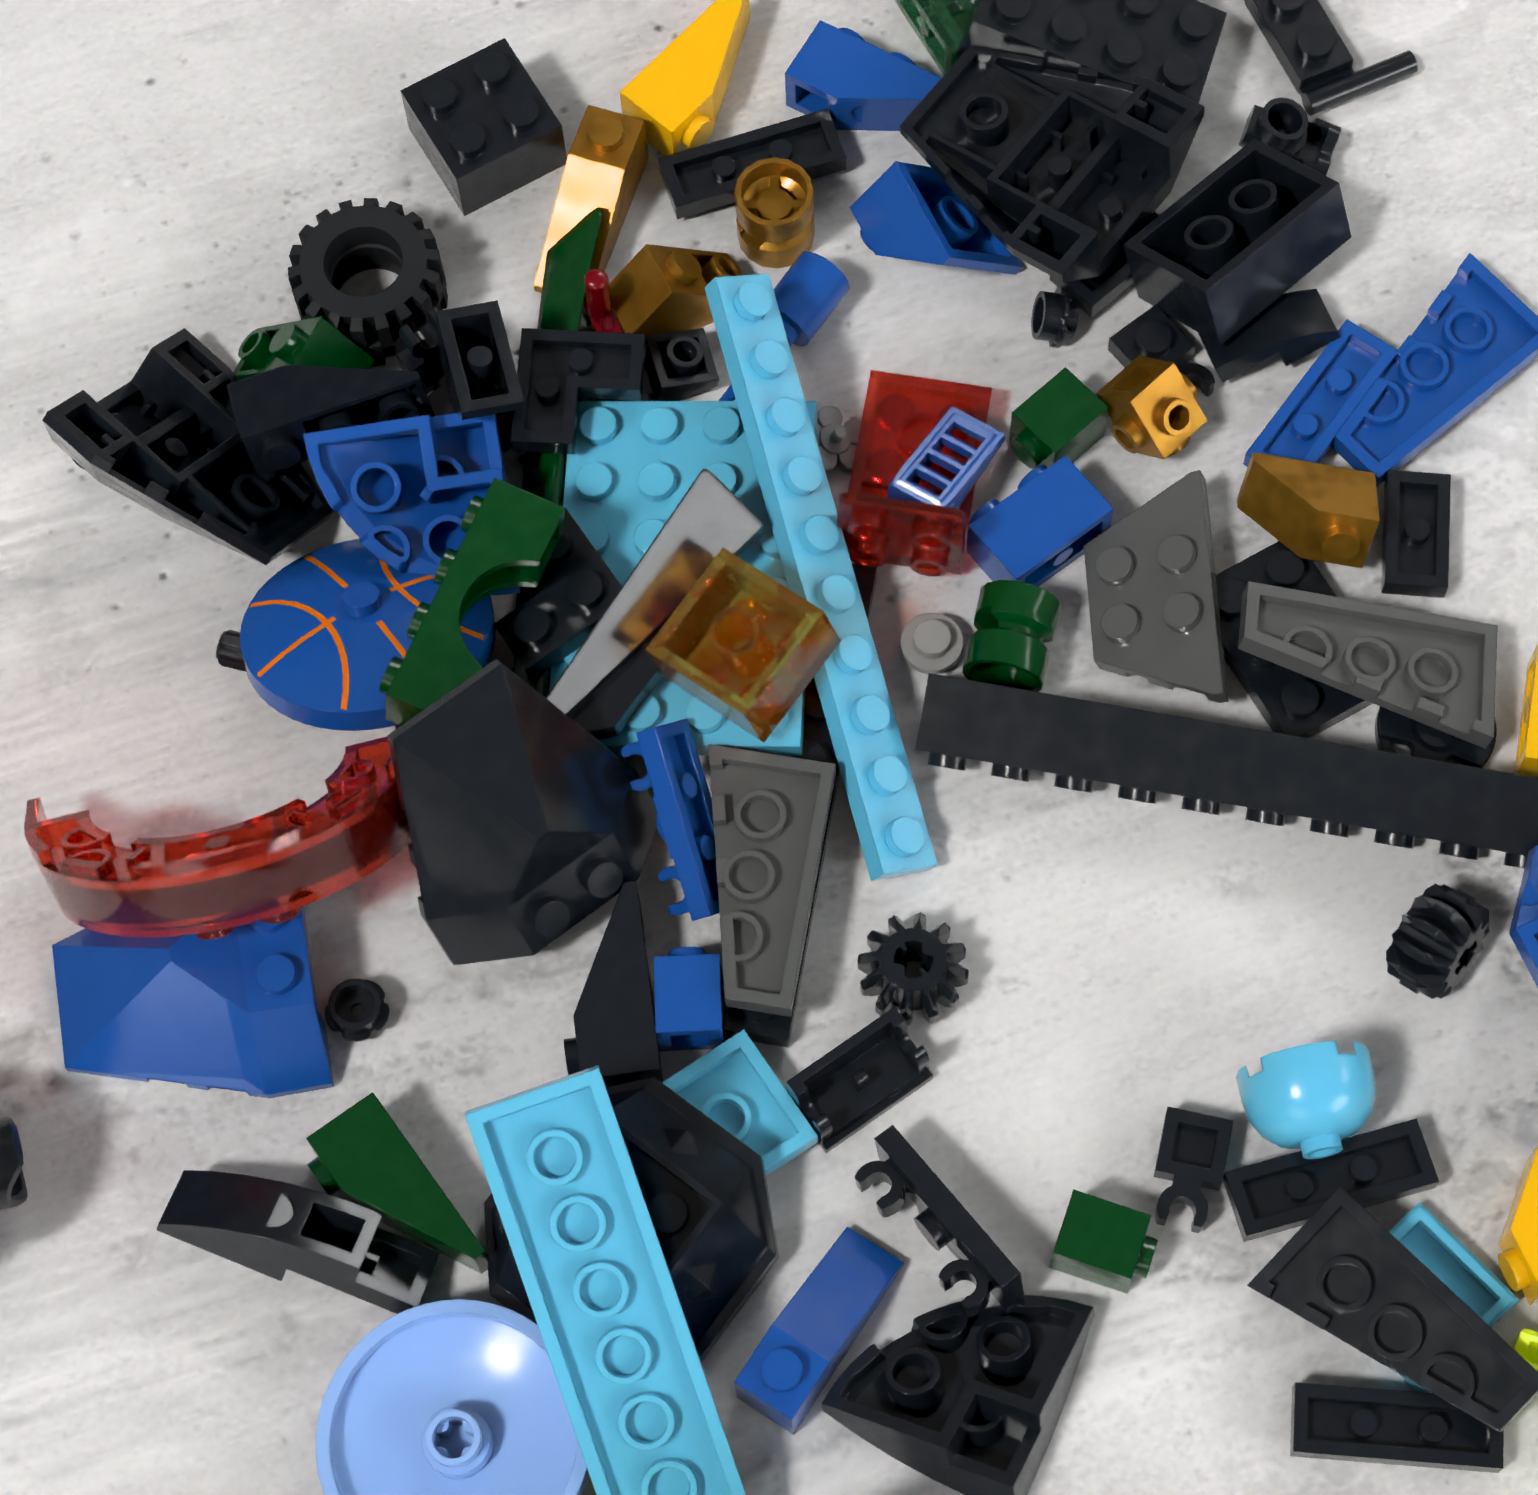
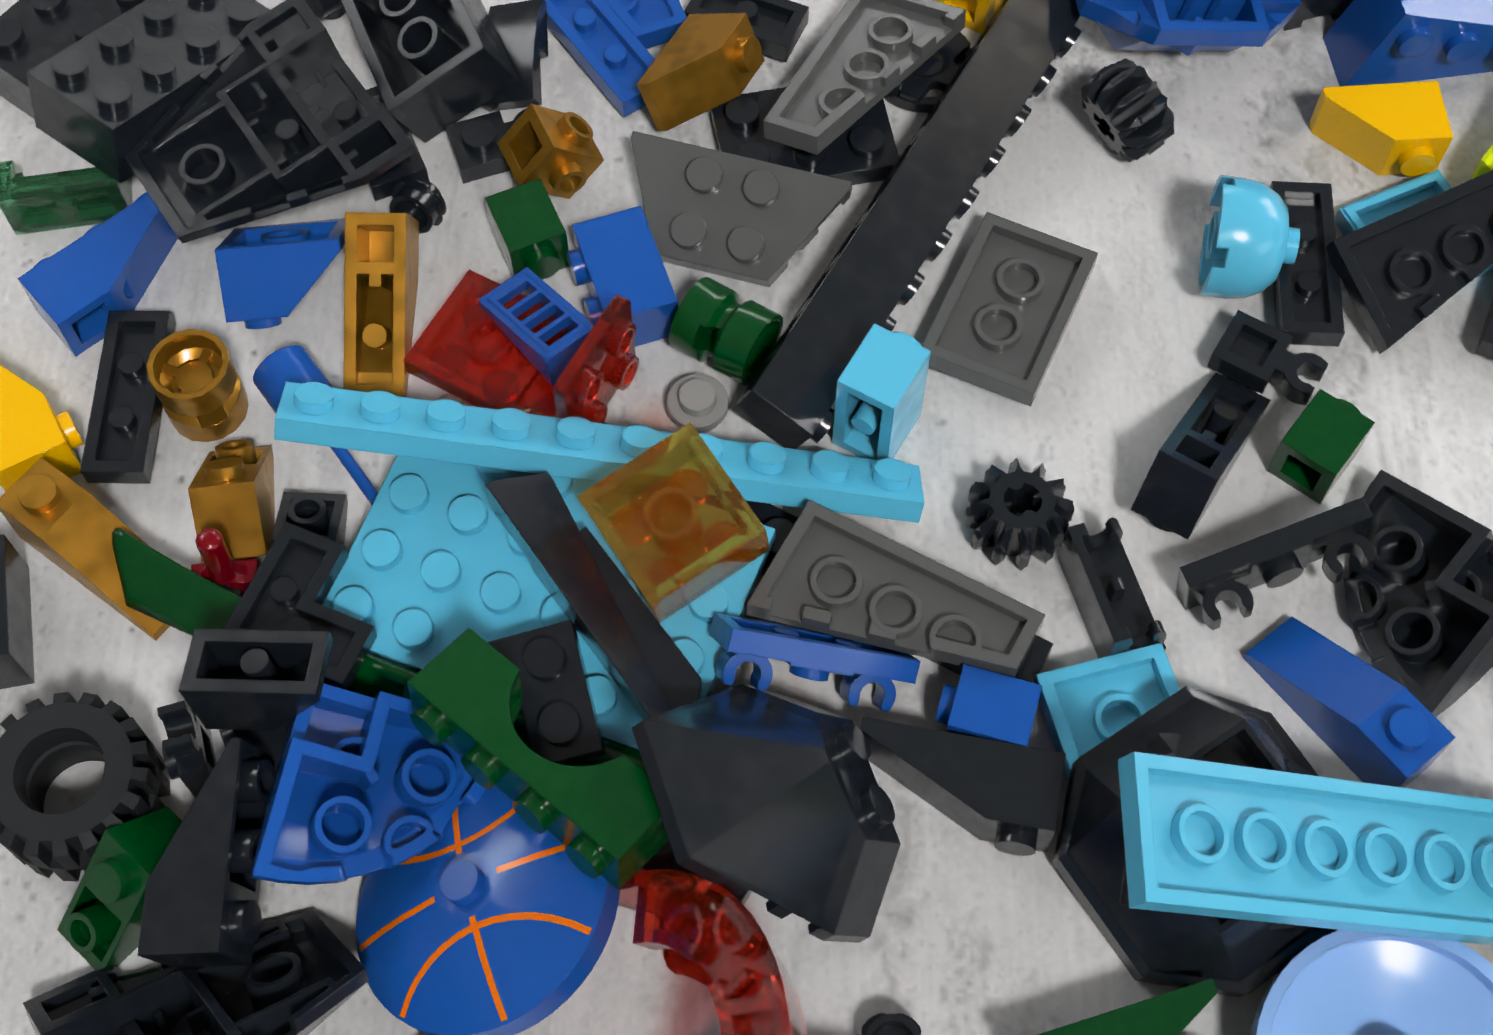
camera: 75 degrees left, 5 degrees down
(931, 324) = (379, 300): none -> pearl gold slope
(981, 796) = (880, 394): none -> medium azure brick
(1049, 1125) = (1199, 456): none -> black slope
(1153, 896) = (1008, 308): none -> dark grey plate

